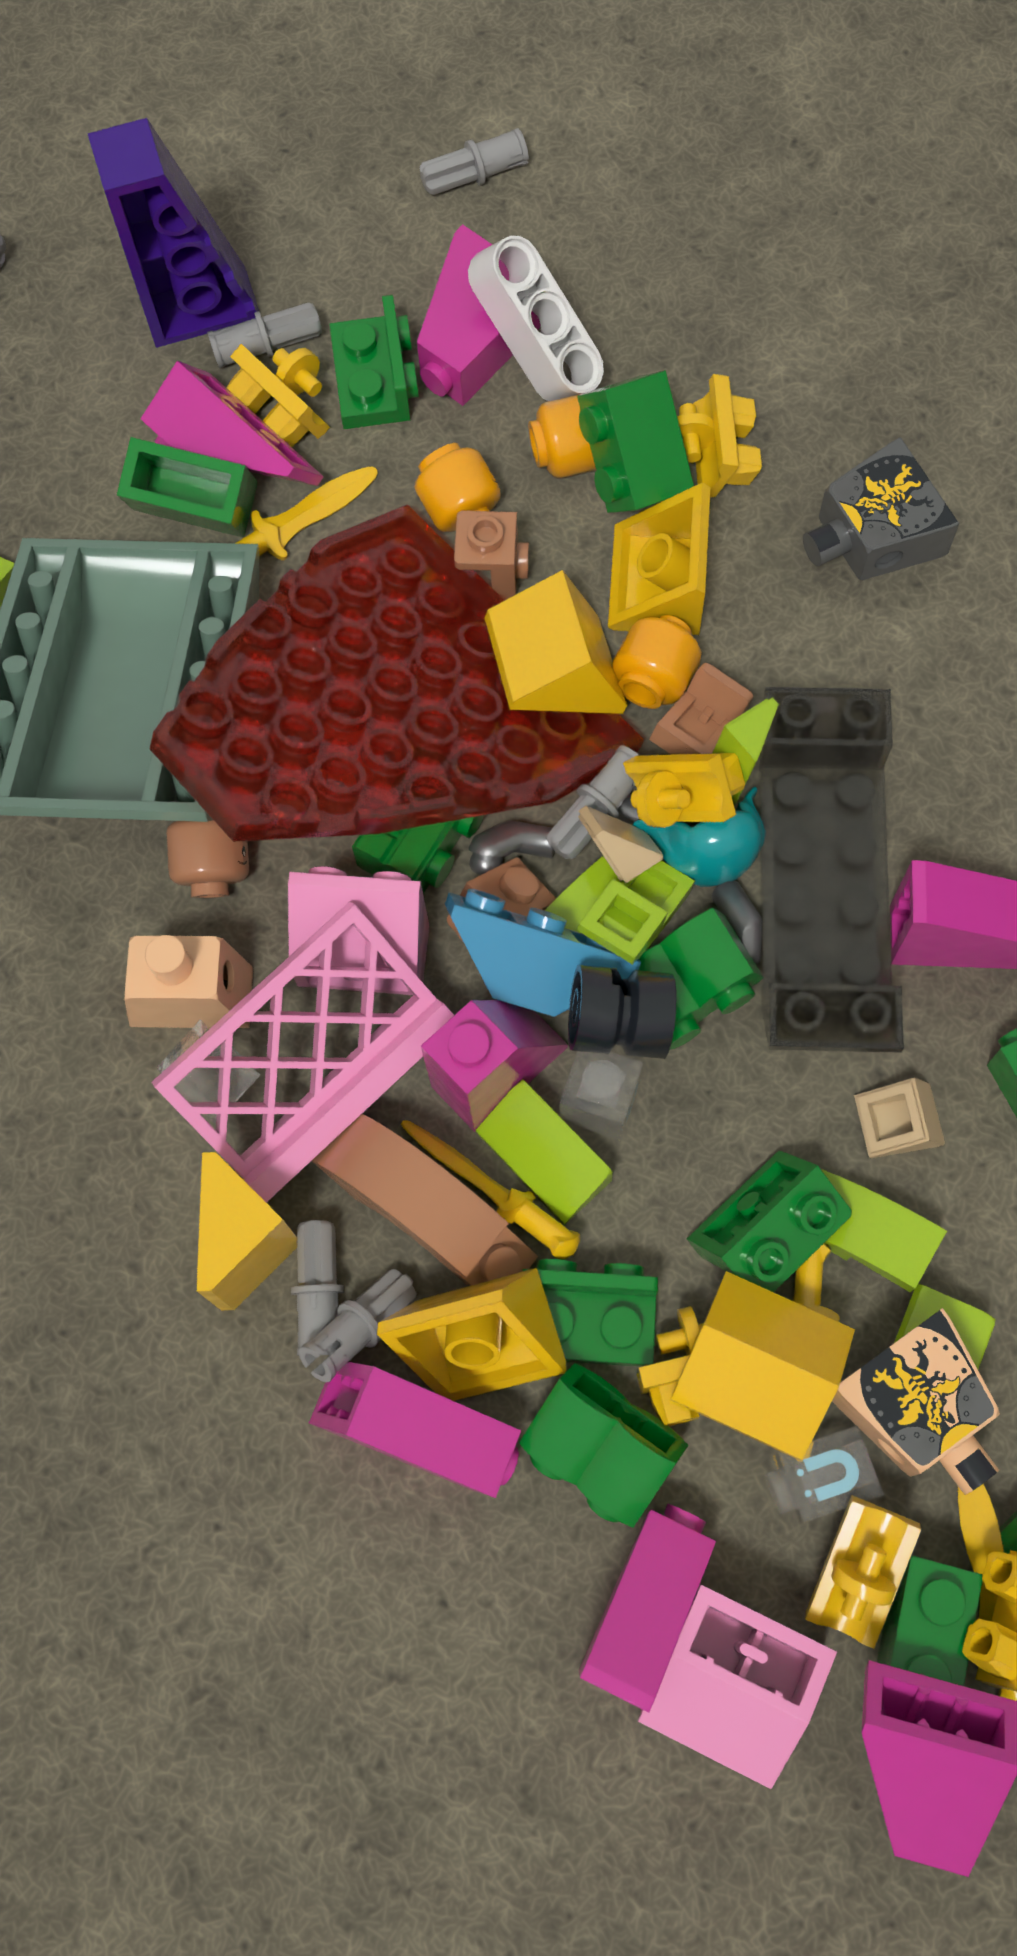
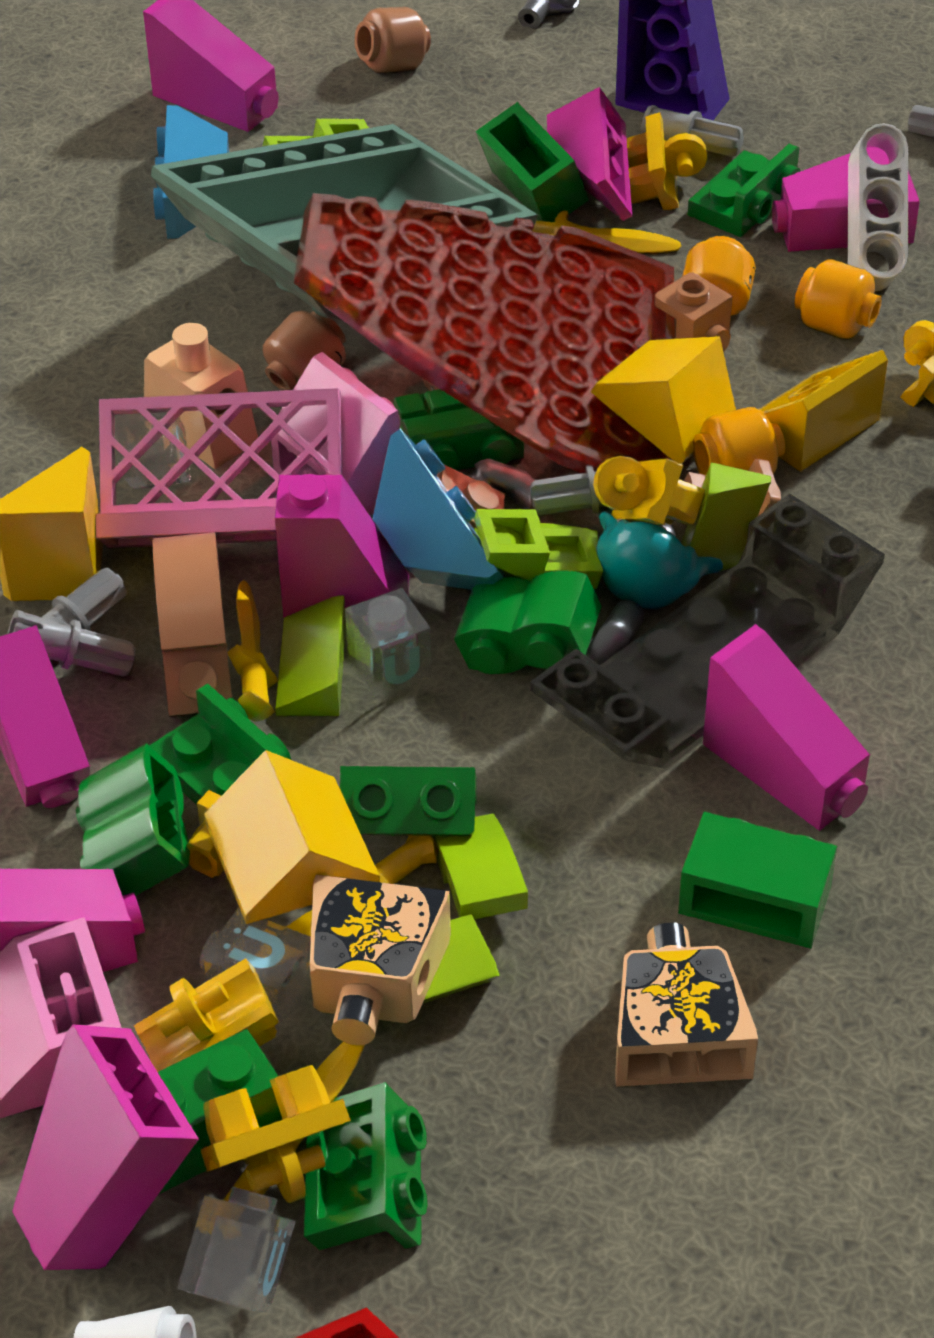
camera: 40 degrees right, 25 degrees down
(478, 1337) = (130, 687): yellow slope -> none
(622, 844) = (567, 500): tan slope -> none
(622, 1012) = (452, 580): black wheel -> none
(635, 442) = (870, 306): green piece -> none
(899, 1118) = (592, 829): tan slope -> none

